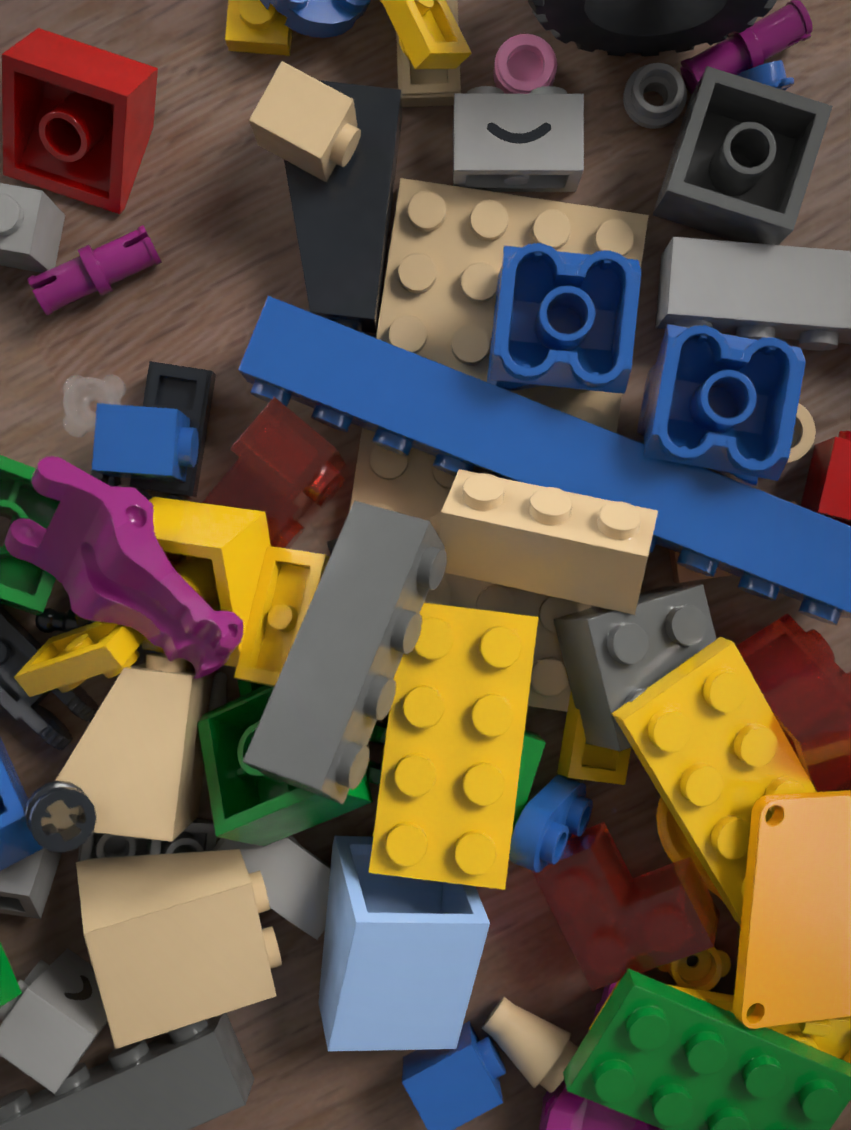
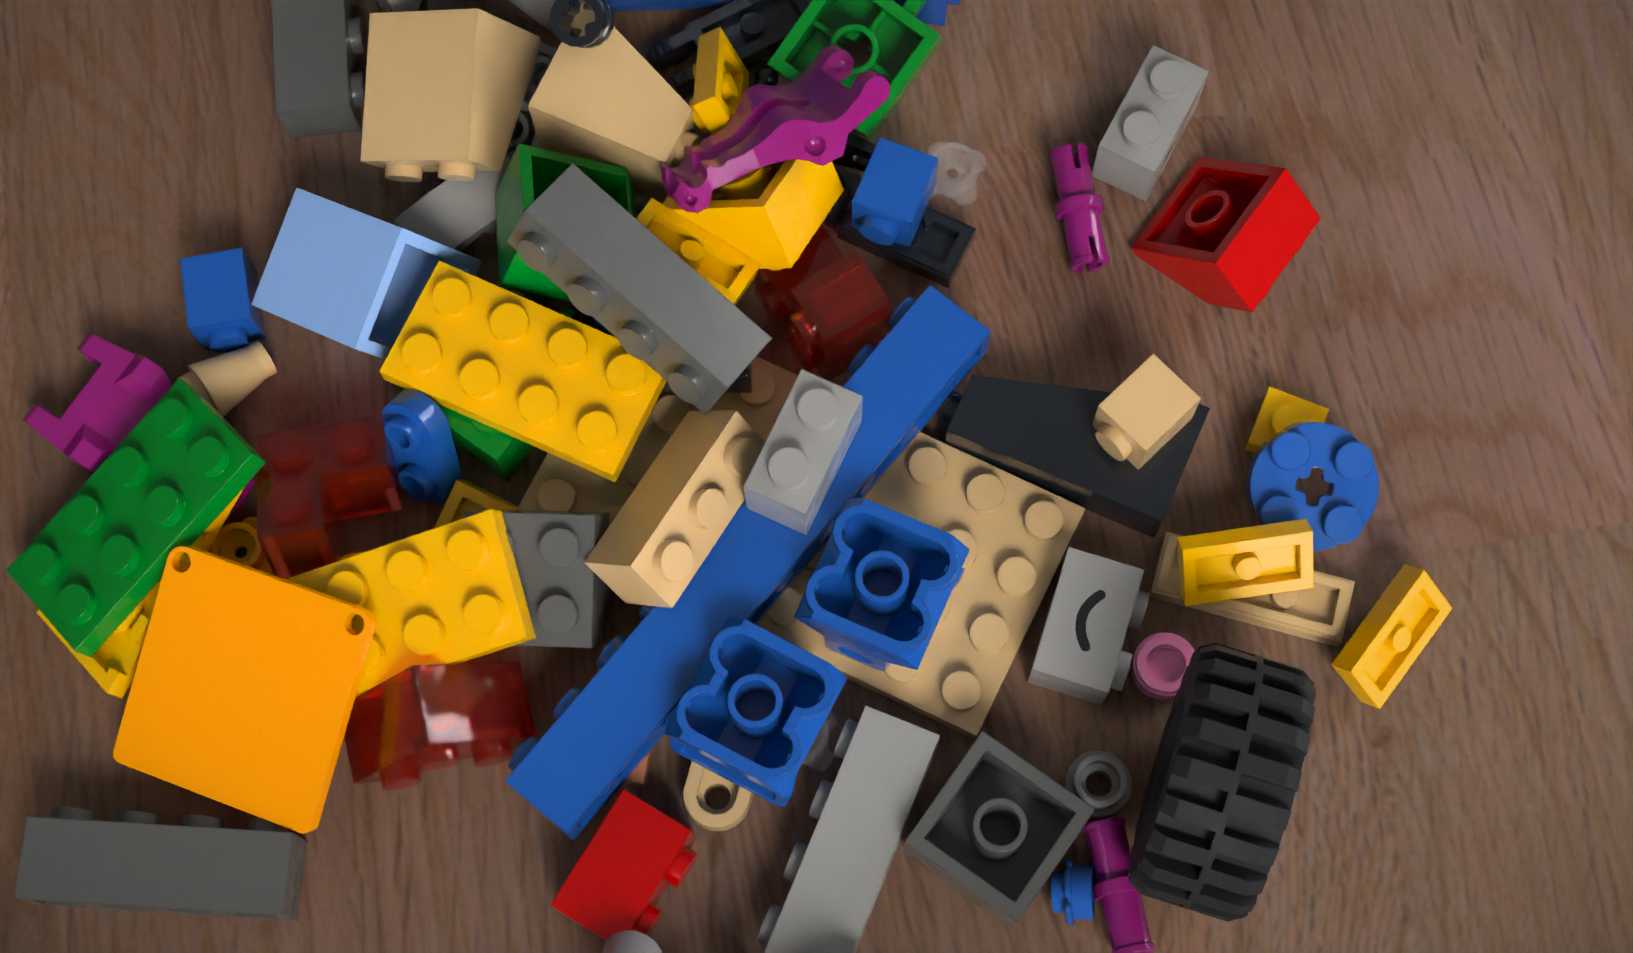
camera: 110 degrees right, 15 degrees down
(466, 427) = (803, 452): none -> light grey brick

